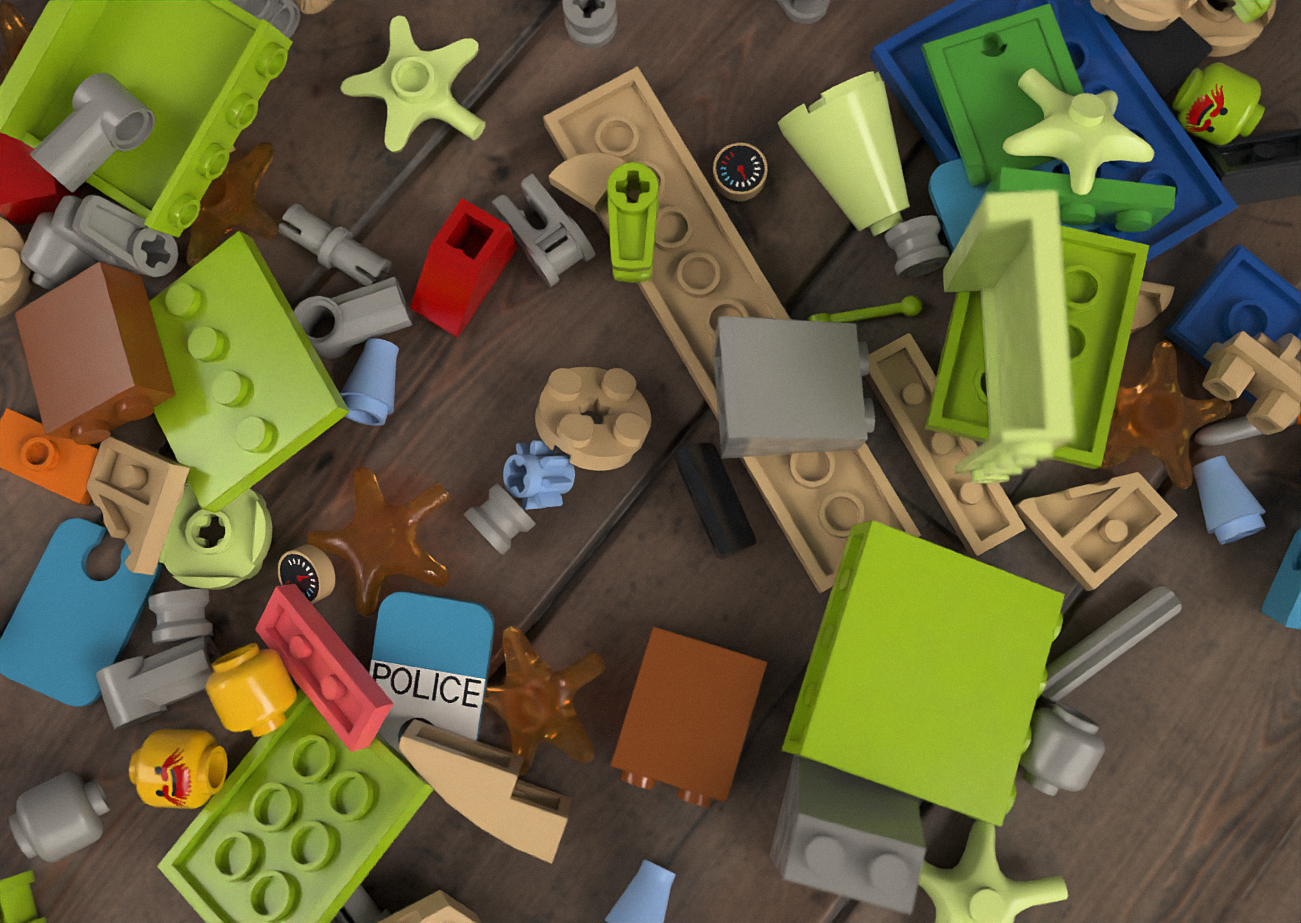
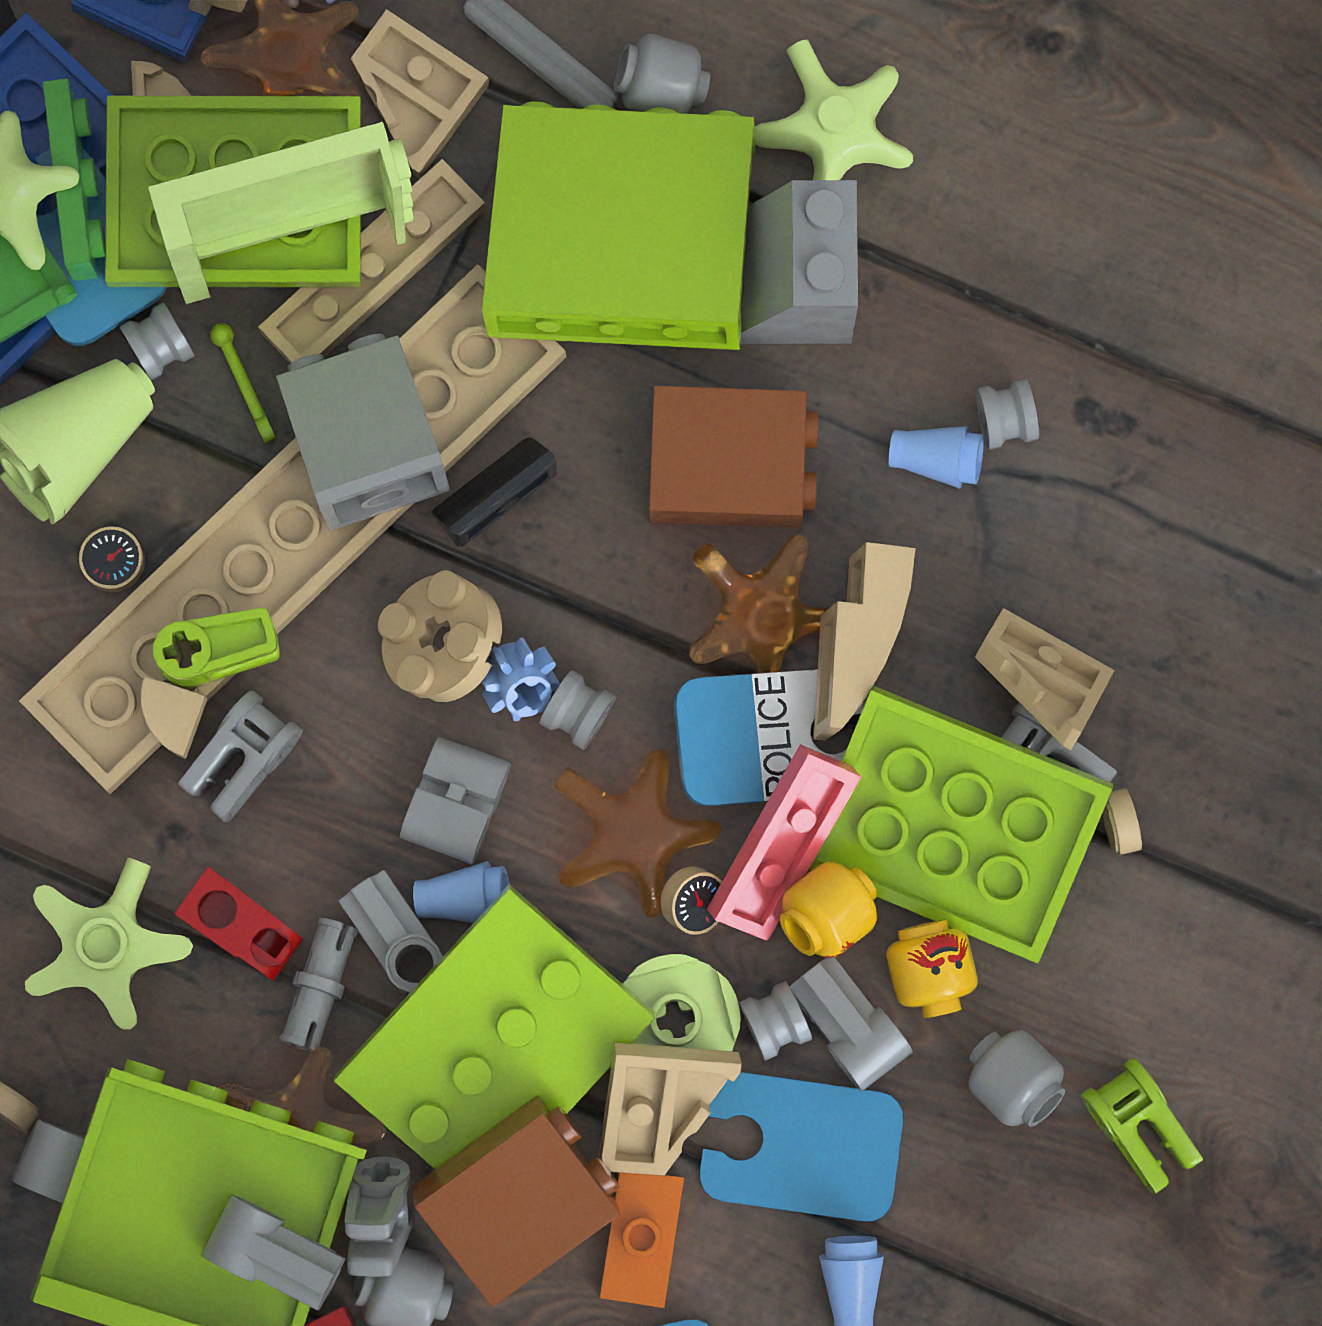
camera: 105 degrees left, 0 degrees up
(402, 194) = (238, 924): none -> red leg
(453, 395) = (455, 800): none -> light grey piece
(462, 267) = (311, 827): red slope -> none

